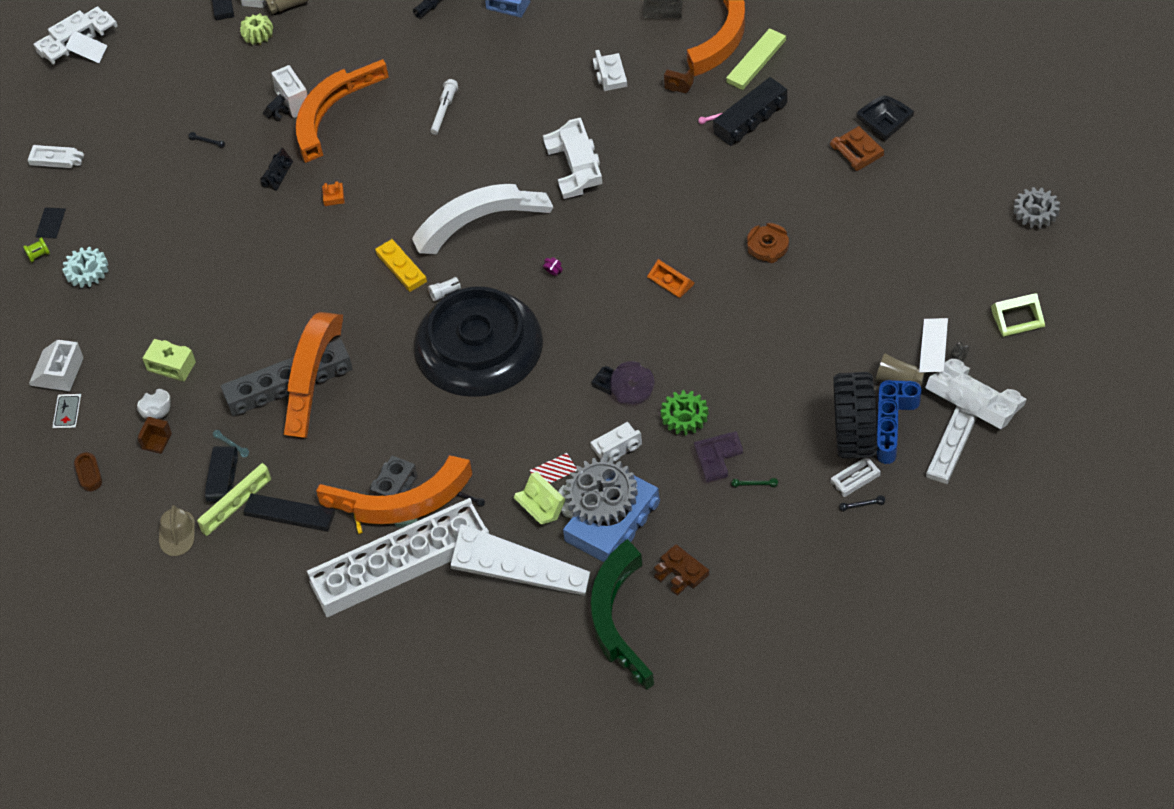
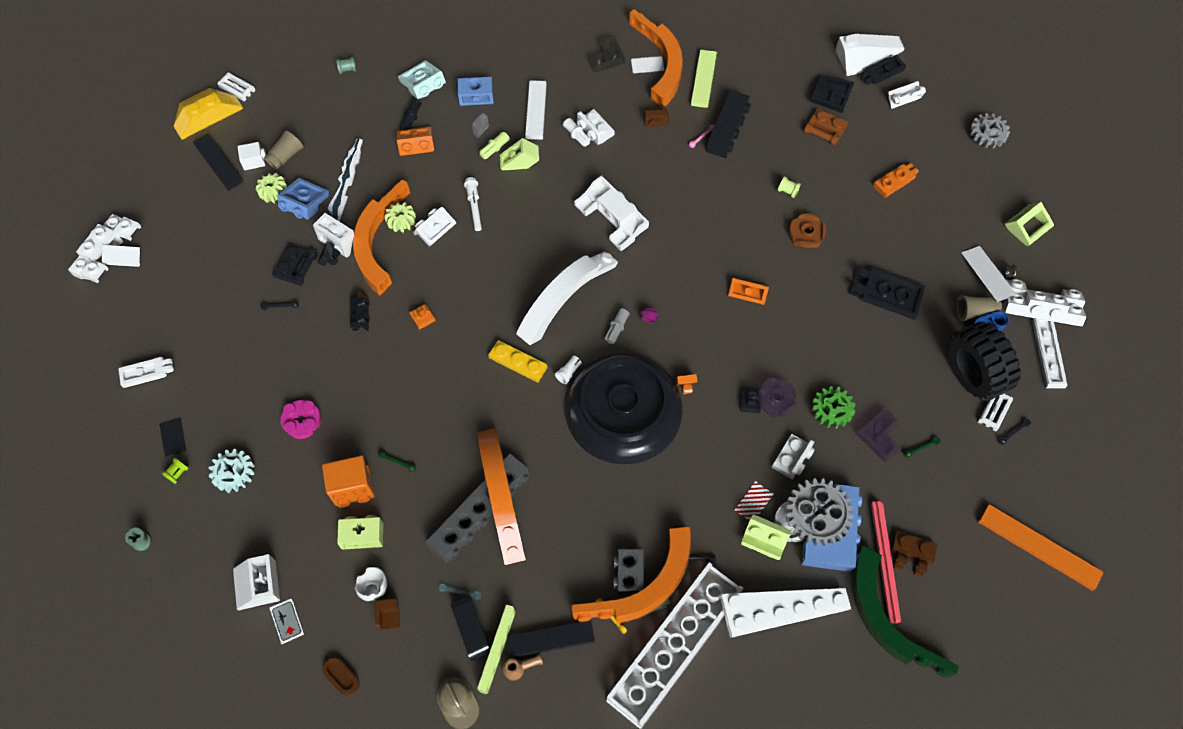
camera: 30 degrees left, 10 degrees up
(167, 237) = (293, 411): none -> dark pink plate
(180, 310) = (348, 481): none -> orange piece
(240, 107) = (289, 263): none -> black plate
(246, 523) = (520, 666): none -> medium nougat bar
(247, 323) = (412, 467): none -> dark green hinge
(279, 48) = (302, 198): none -> medium blue plate
(332, 44) = (346, 179): none -> white sword
(363, 95) = (400, 217): none -> yellowish green gear
(391, 114) = (435, 226): none -> white bracket
(419, 28) = (415, 141): none -> orange bracket
(492, 33) = (480, 125): none -> clear tile
(495, 57) = (494, 145): none -> yellowish green axle
(515, 75) = (519, 156): none -> yellowish green slope
(515, 265) = (617, 326): none -> light grey axle
(551, 338) = (686, 382): none -> orange tile
(559, 36) = (536, 110): none -> white tile
(587, 70) = (576, 132): none -> white axle
(647, 567) = (886, 562): none -> coral axle
(703, 26) = (647, 64): none -> white sticker
(775, 193) = (789, 187): none -> yellowish green bush
(815, 614) = (1041, 547): none -> orange tile
(816, 328) = (888, 291): none -> black tile
(900, 224) = (895, 179): none -> orange hinge
(947, 83) = (862, 51): none -> white wedge
(958, 110) = (883, 70): none -> black hinge
(966, 142) = (905, 94): none -> white hinge

